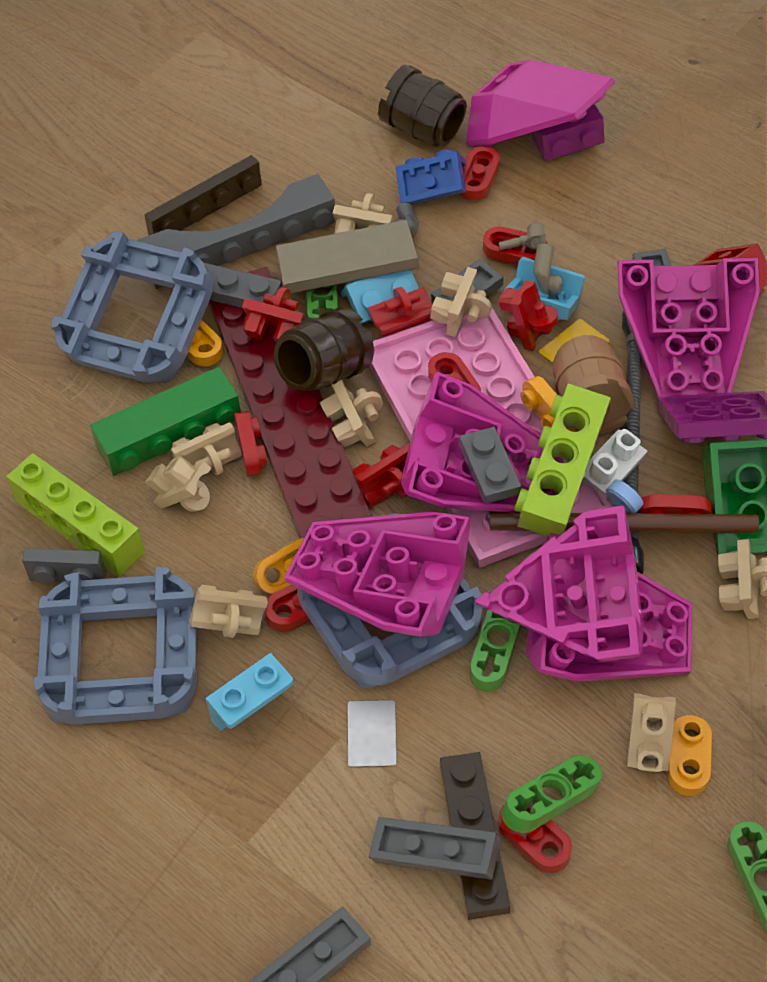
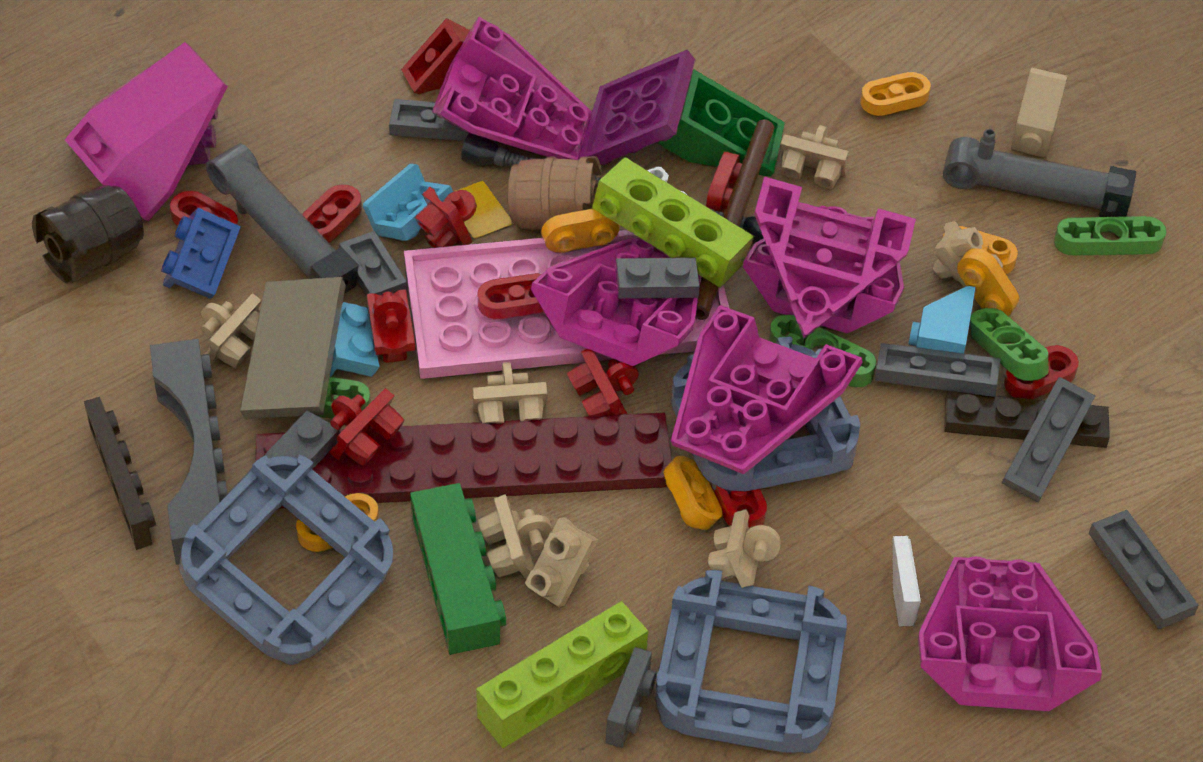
camera: 80 degrees left, 5 degrees down
(192, 840) = (1005, 638): none -> dark pink wedge
(229, 750) = (905, 582): none -> white tile
(248, 692) = (848, 549): medium azure bracket -> none
(253, 454) = (522, 495): red plate -> none
(324, 350) = (436, 387): dark brown piece -> none
(371, 733) = (898, 475): flat silver sticker -> none
(406, 212) = (238, 294): dark grey arm -> none
(464, 302) = (411, 261): tan hips -> none
(501, 737) = (937, 369): none -> dark grey plate
(507, 168) = (239, 175): none -> dark grey piece
(534, 236) = (337, 186): dark tan hand -> none
(542, 270) = (403, 192): dark tan arm -> none
(557, 733) = (945, 323): none -> medium azure slope
(622, 494) = (714, 199): light blue tile -> none
(624, 741) = (992, 285): none -> light orange plate

